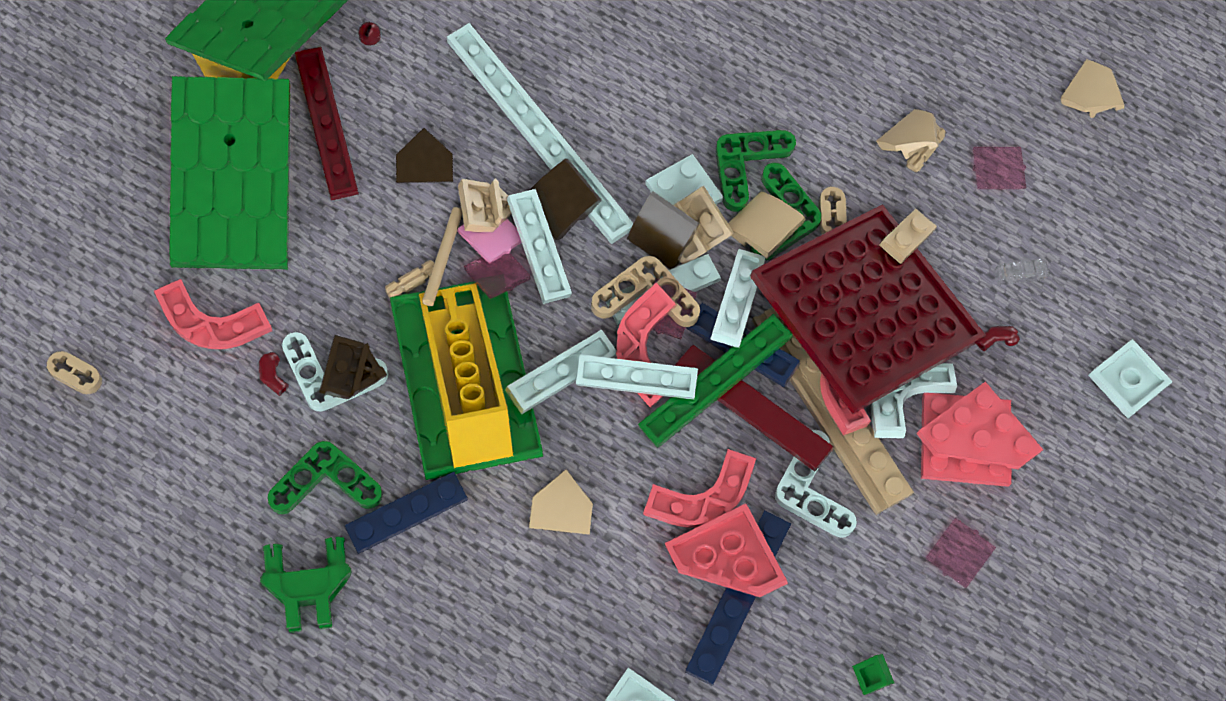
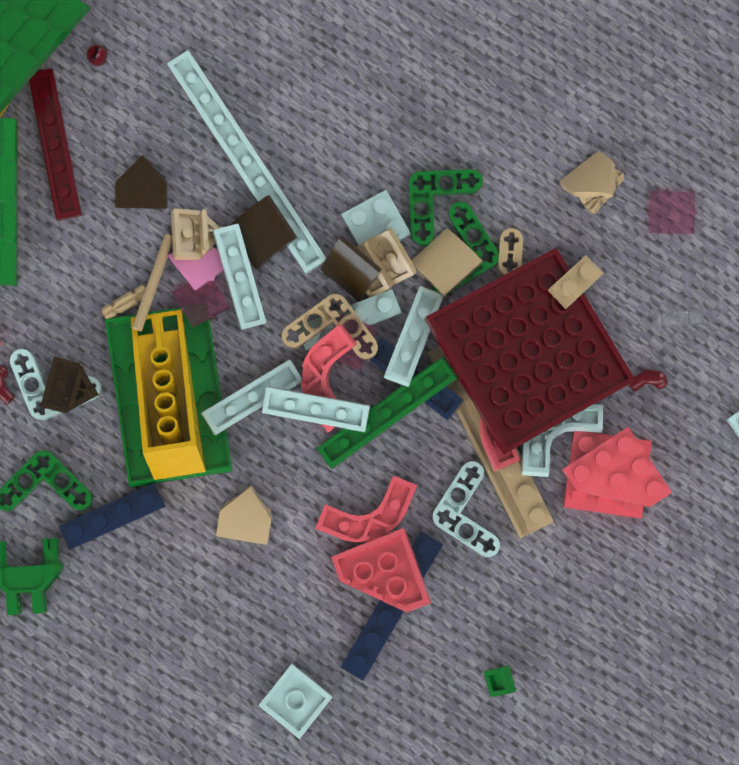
camera: 15 degrees right, 15 degrees up
(766, 416) = (426, 443): dark red tile -> none
(960, 552) = (589, 576): clear pink piece -> none

